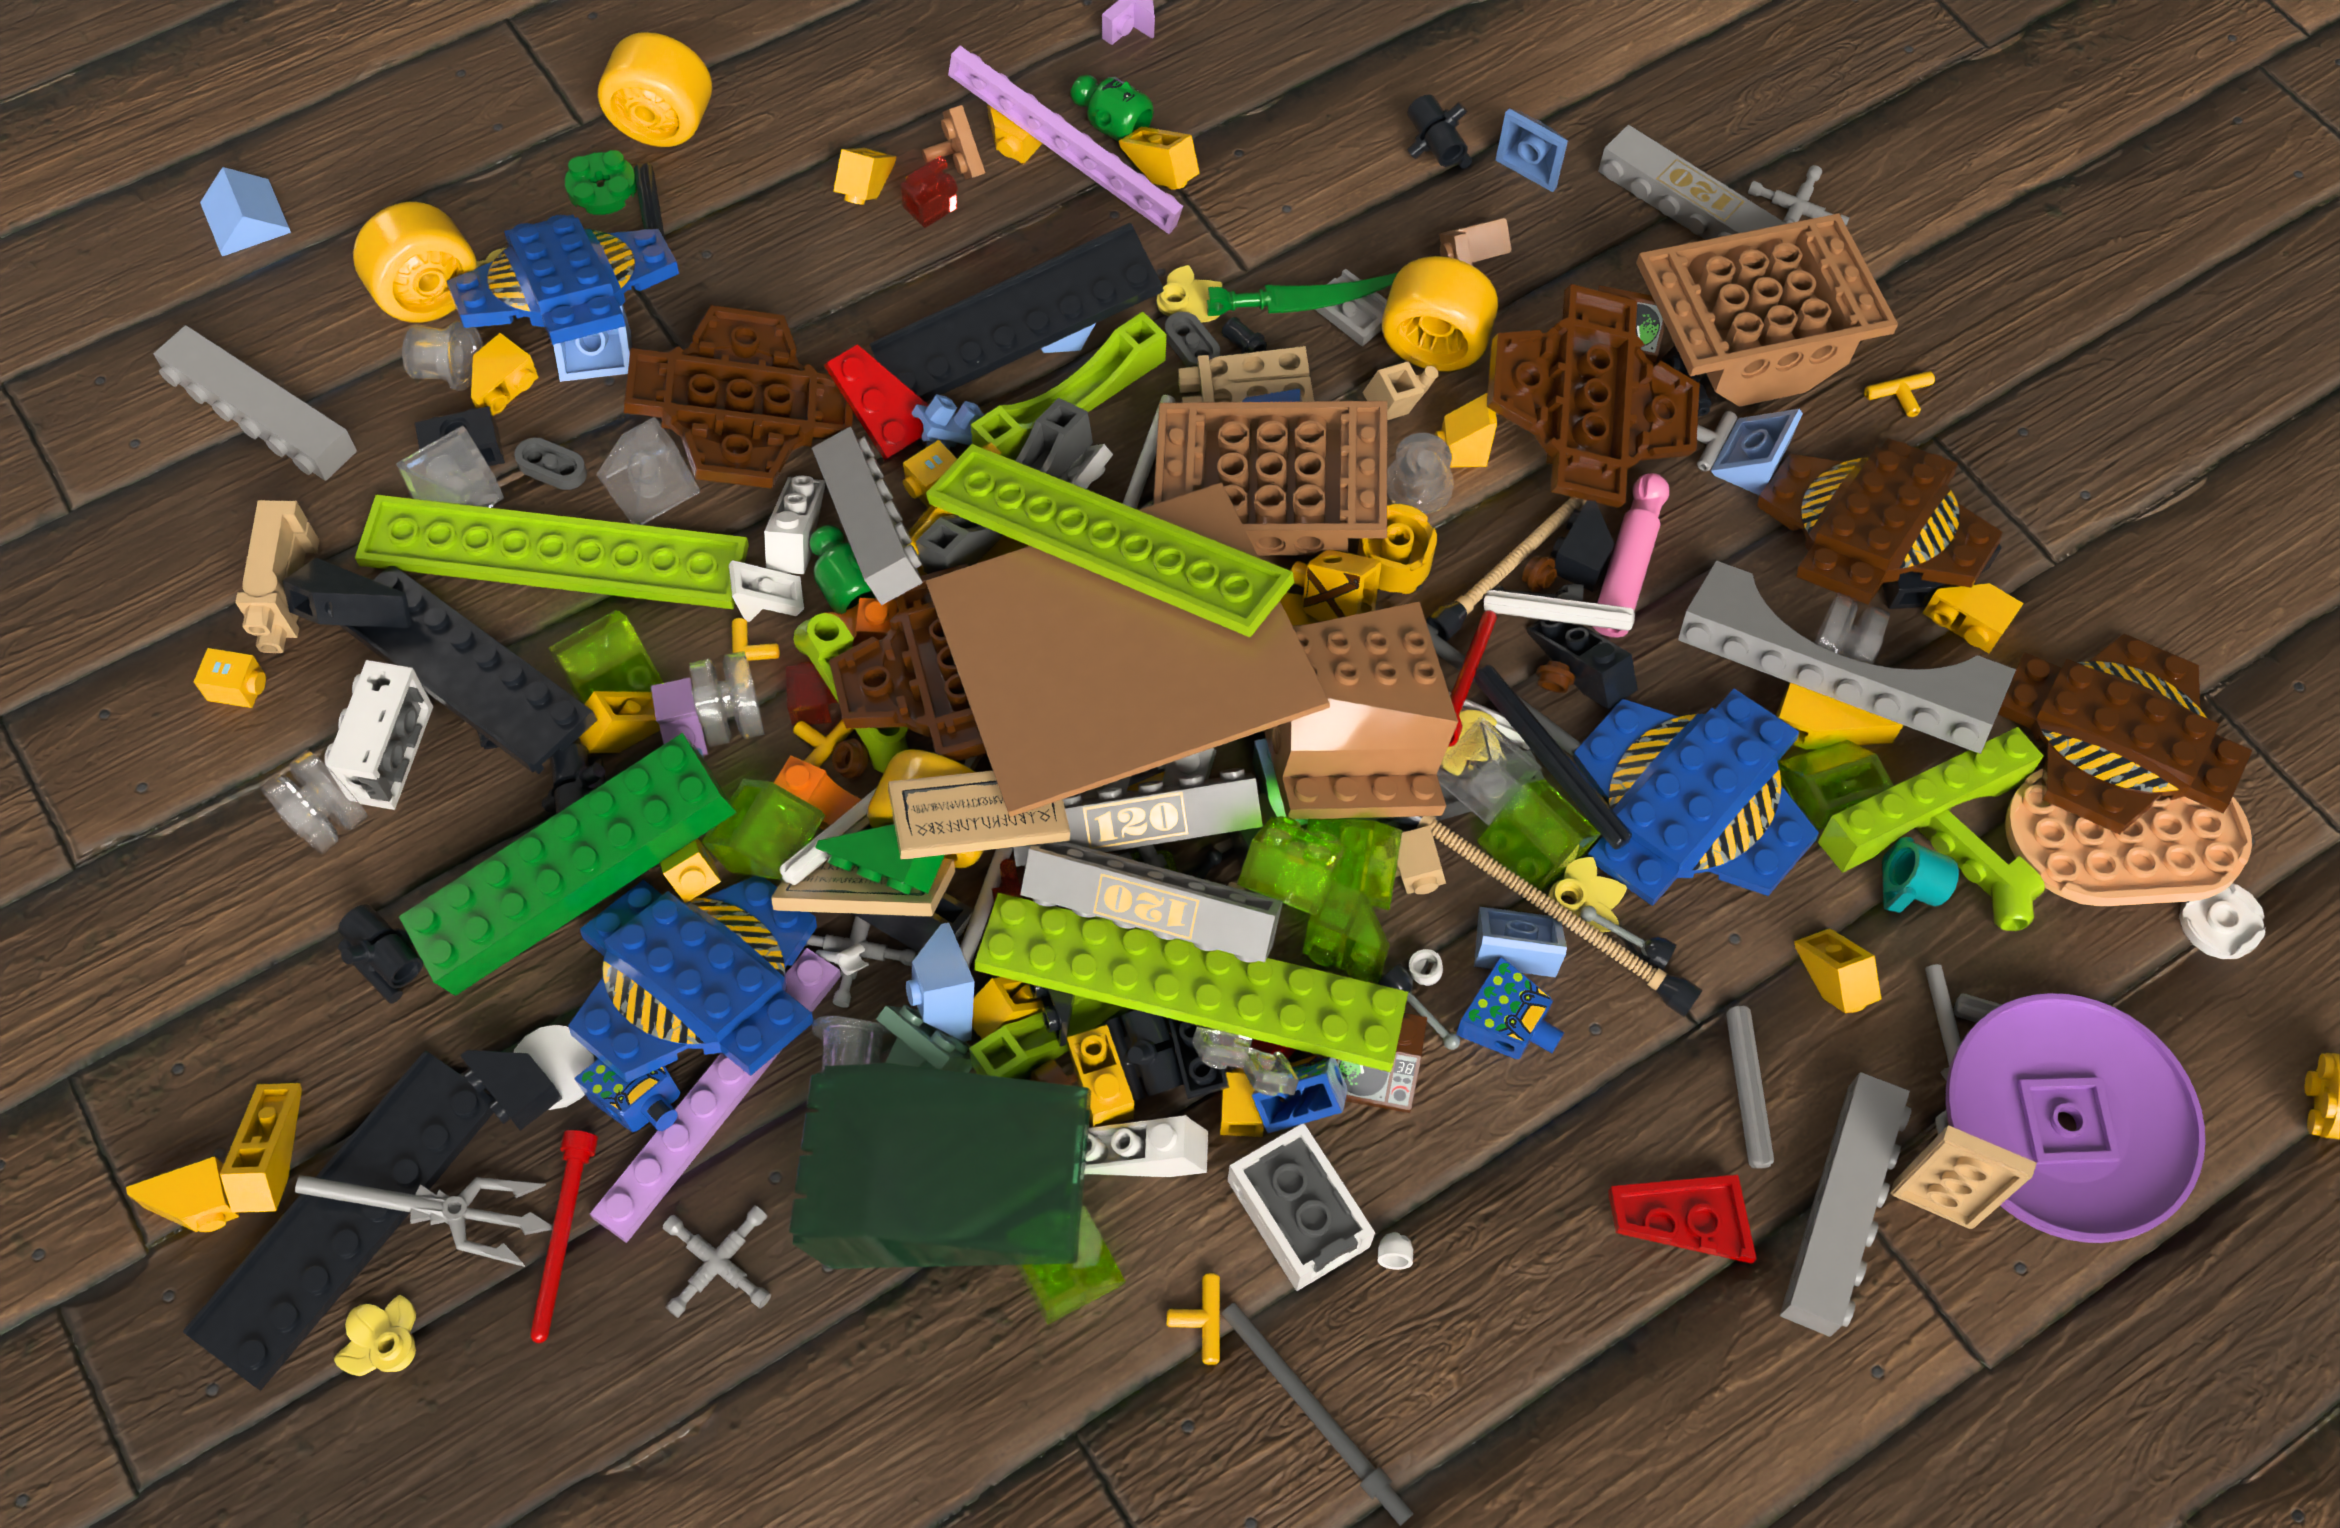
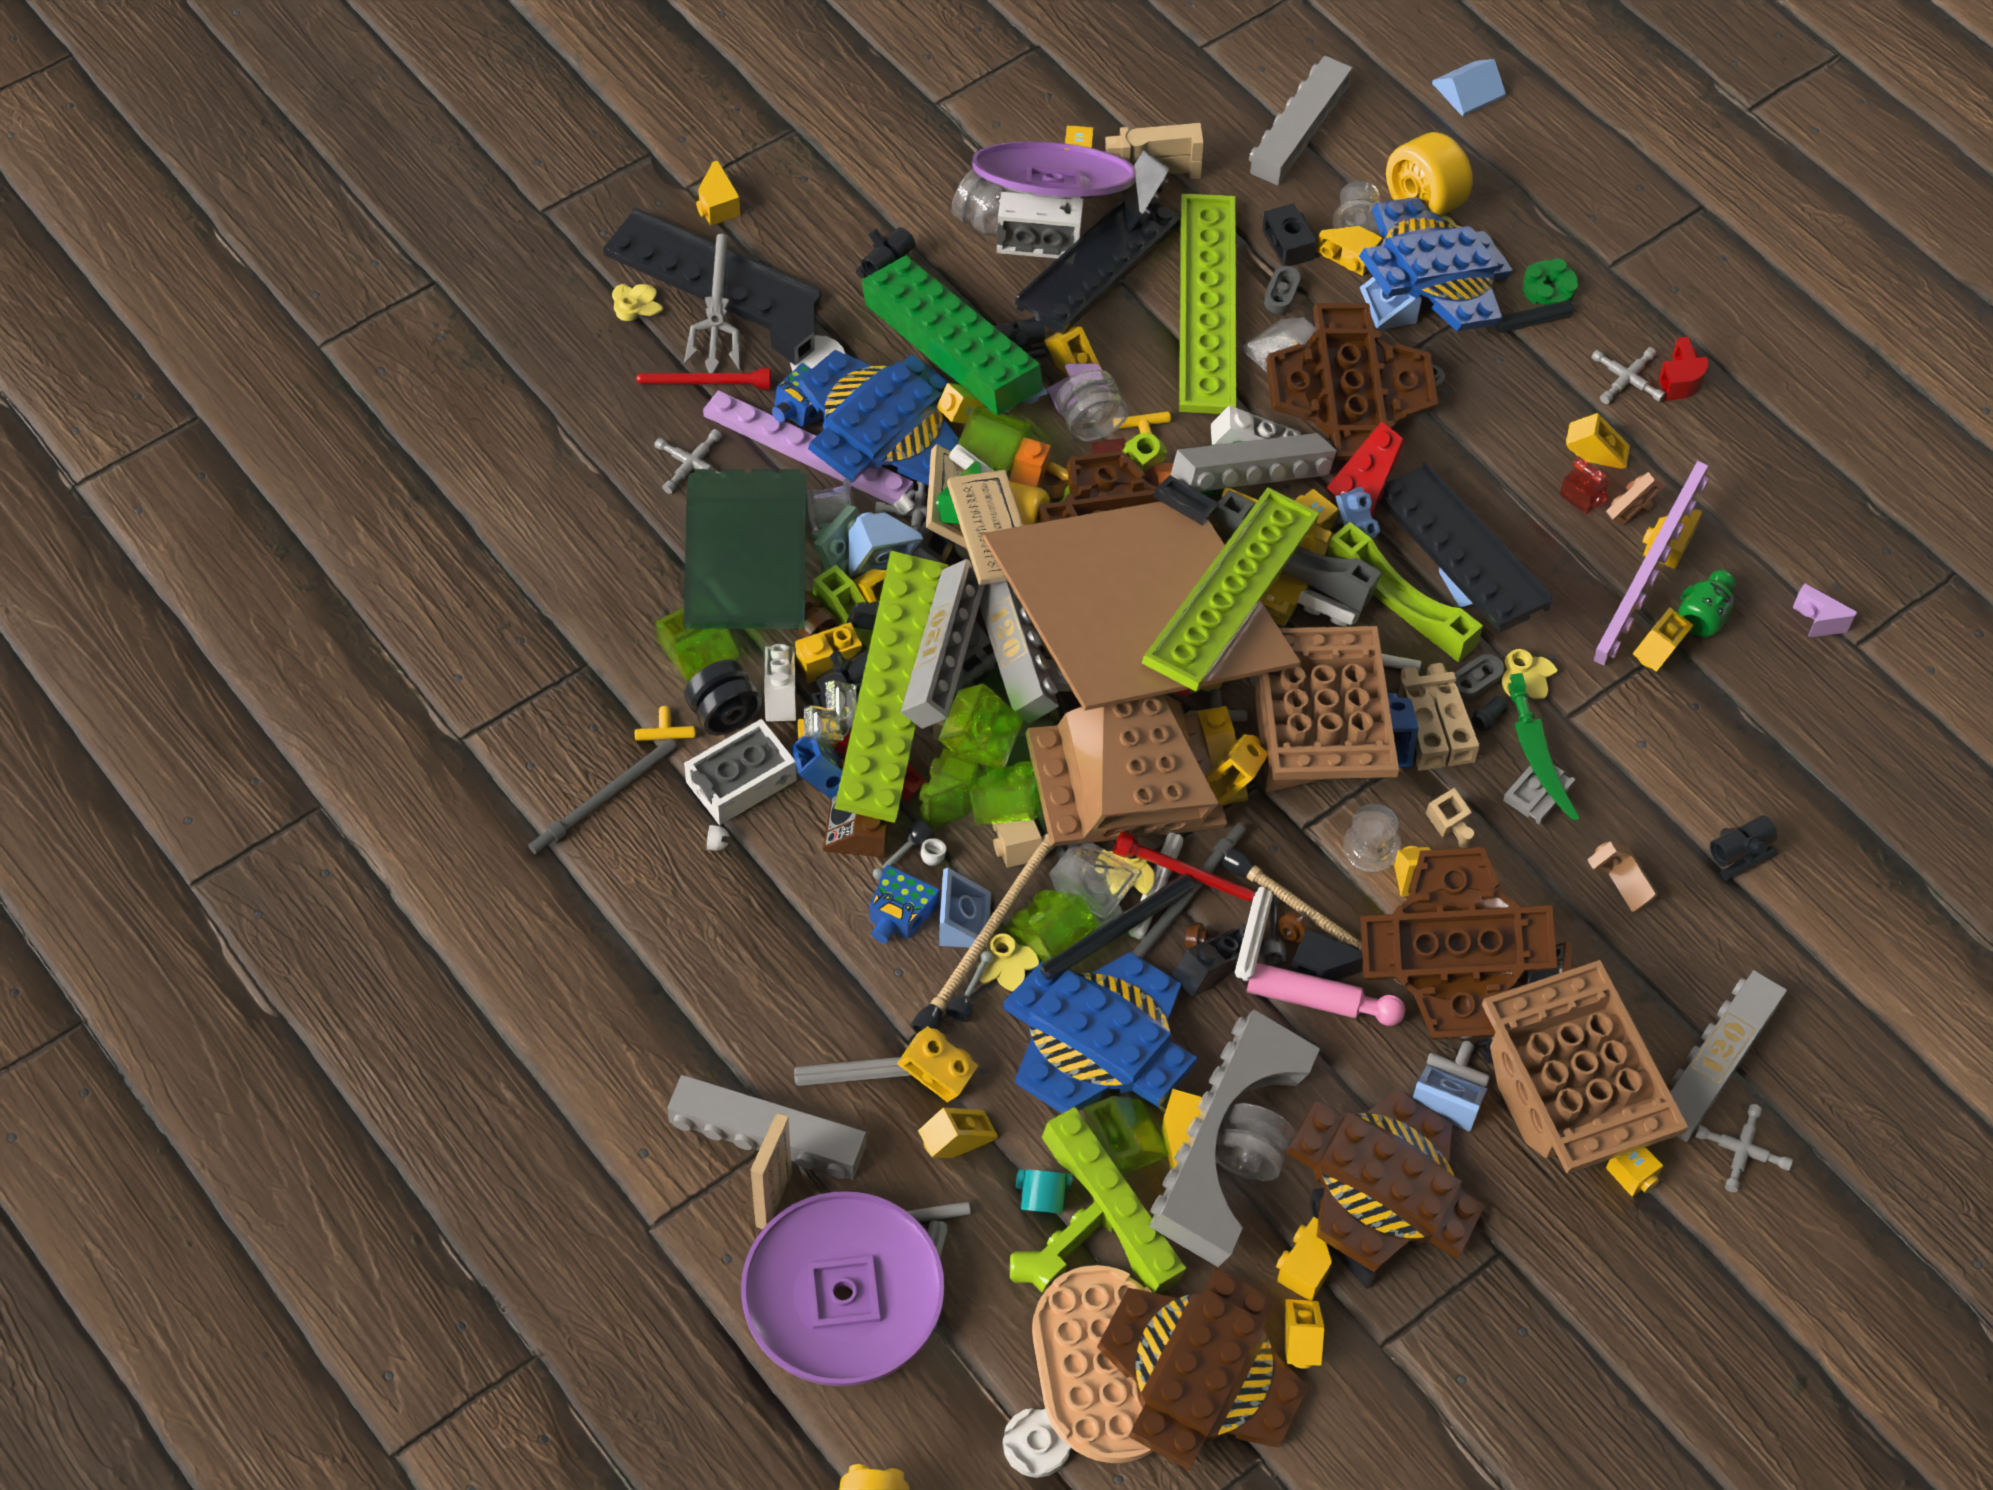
camera: 85 degrees right, 5 degrees down
(262, 1149) = (750, 222): yellow slope -> none
(309, 686) = (1052, 172): none -> medium lavender dish
(451, 472) = (1255, 232): clear slope -> none
(605, 658) = (1120, 340): clear neon green slope -> none
(655, 89) = (1629, 291): yellow wheel -> none
(759, 131) = (1628, 375): none -> light grey piece
(764, 588) = (1190, 419): white slope -> none
(771, 69) = (1685, 373): none -> red brick
(940, 584) = (1186, 500): none -> black tile
(1181, 1221) = (723, 697): none -> black wheel
(1406, 550) = (1294, 819): yellow brick -> none
(1440, 313) = (1525, 833): yellow wheel -> none
(1531, 149) = (1749, 916): medium blue slope -> none
(1687, 1214) = (752, 1023): red wing -> none
(1753, 980) = (938, 1063): none -> yellow brick
(1902, 388) = (1546, 1223): yellow piece -> none
(2062, 627) = (1303, 1333): none -> yellow slope

